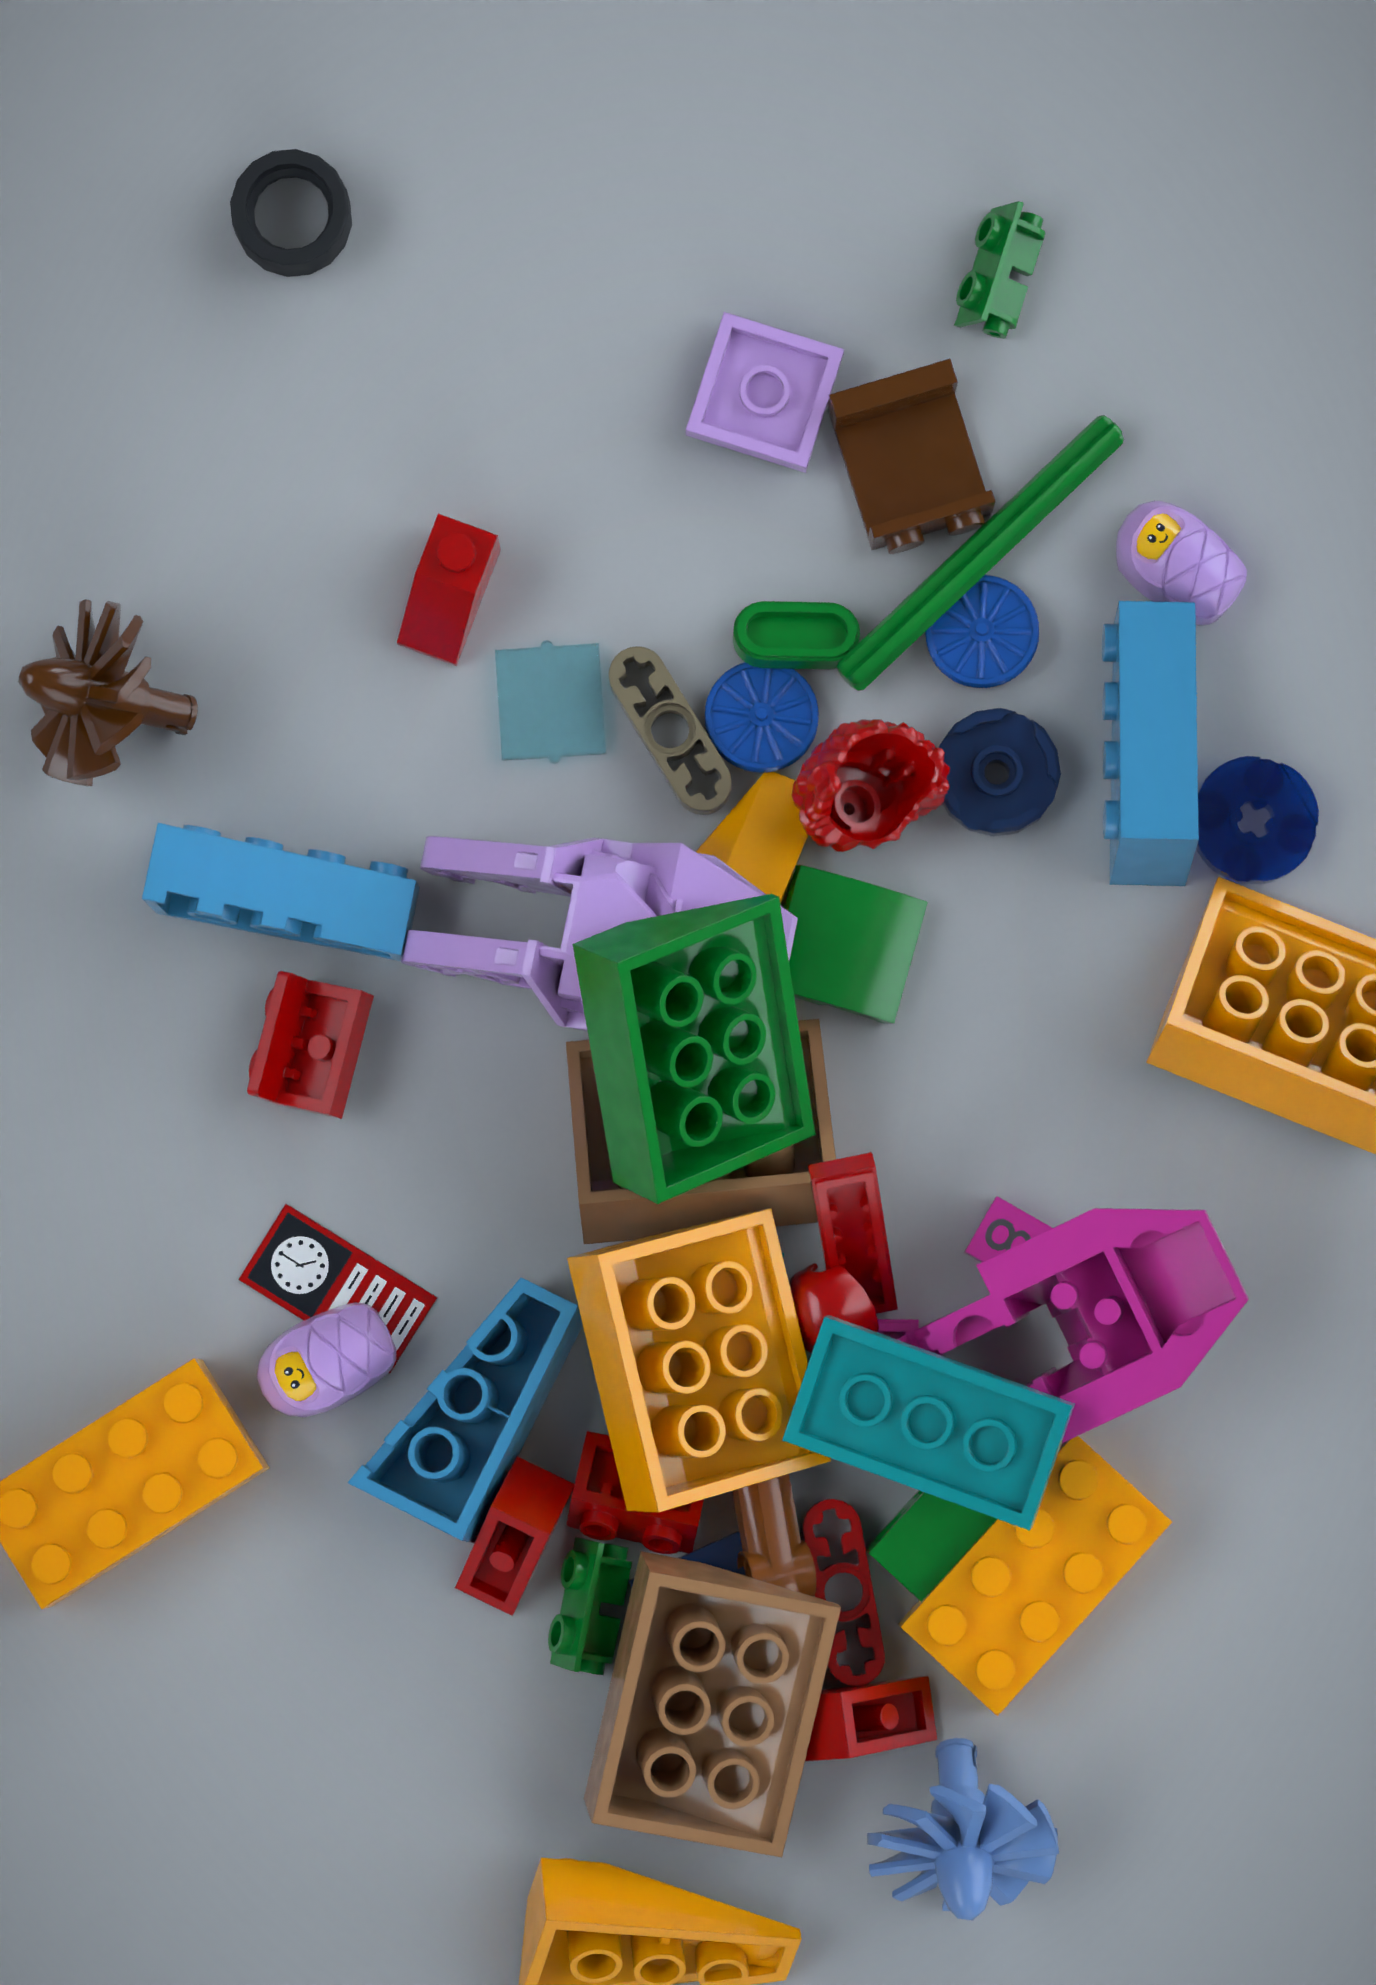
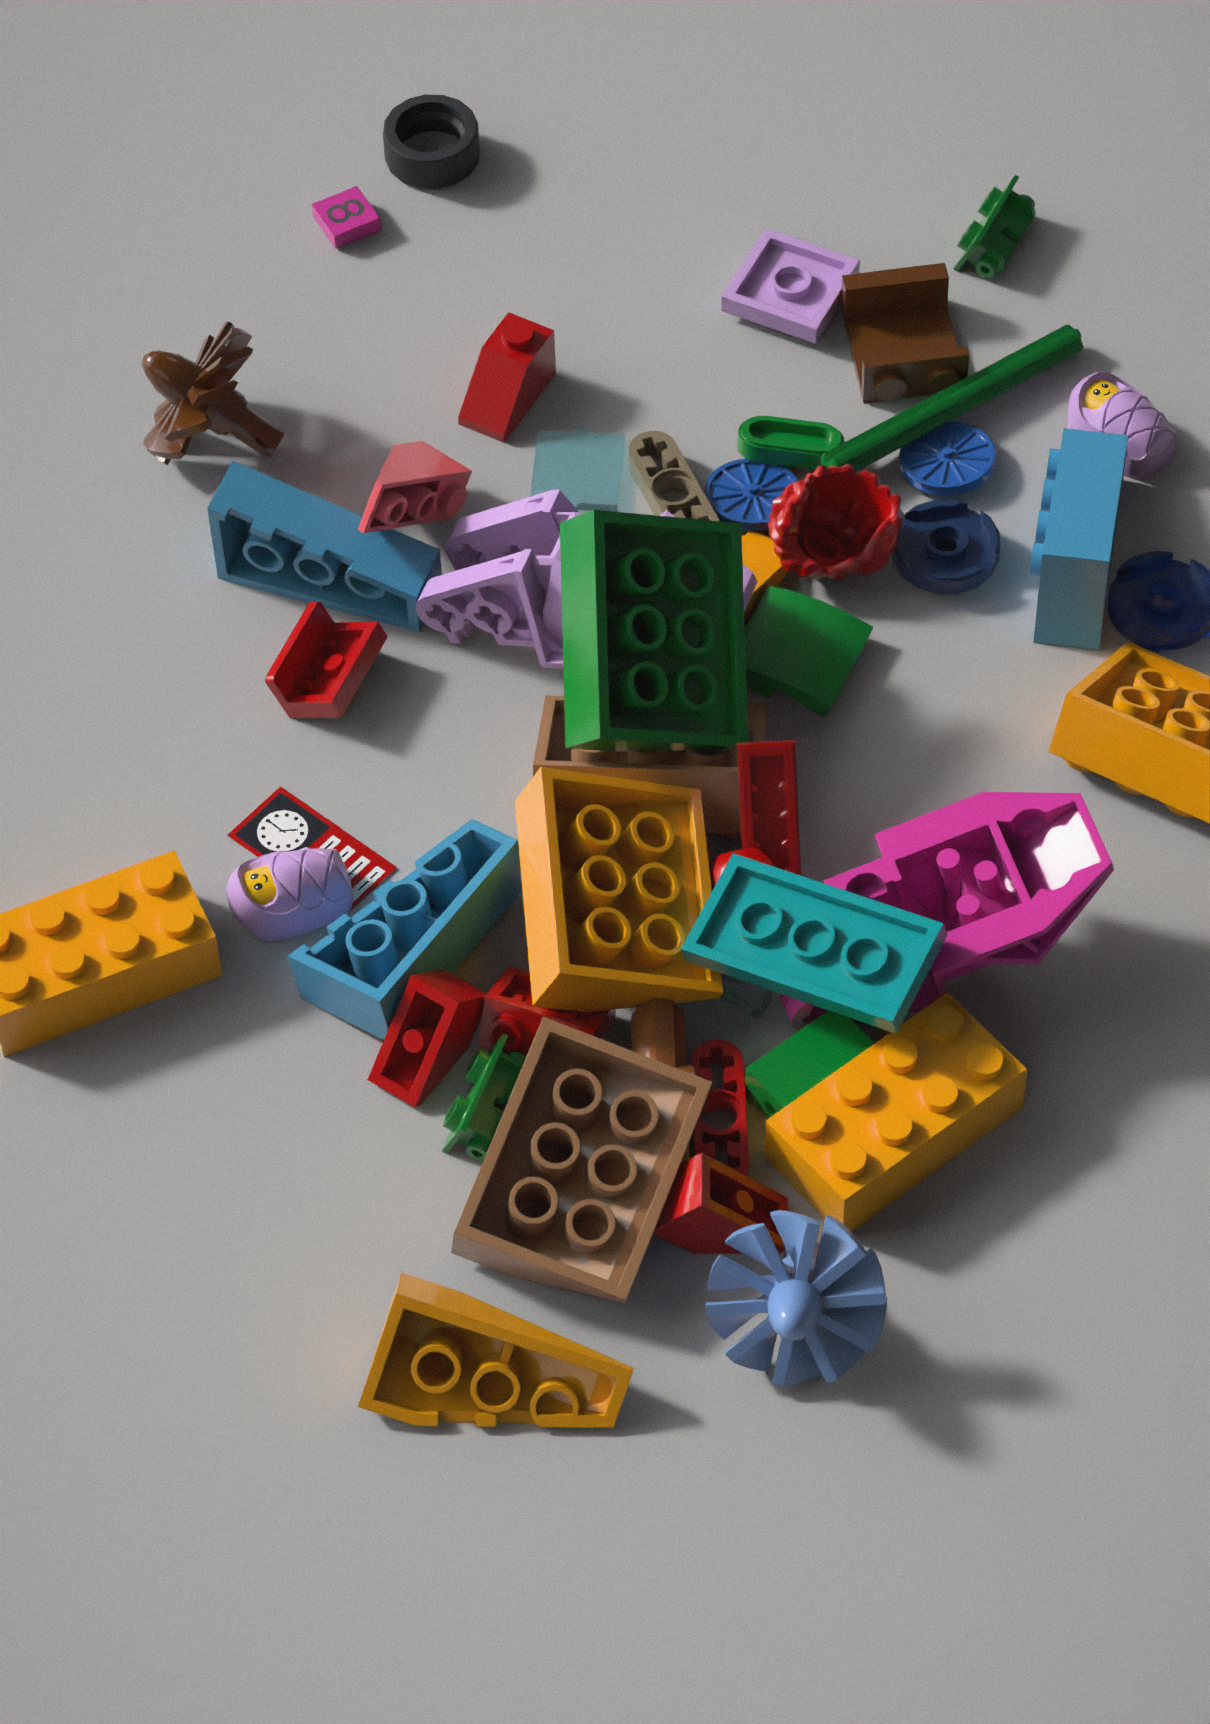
camera: 10 degrees right, 30 degrees down
(206, 342) = (346, 217): none -> dark pink tile
(364, 790) = (415, 488): none -> coral slope

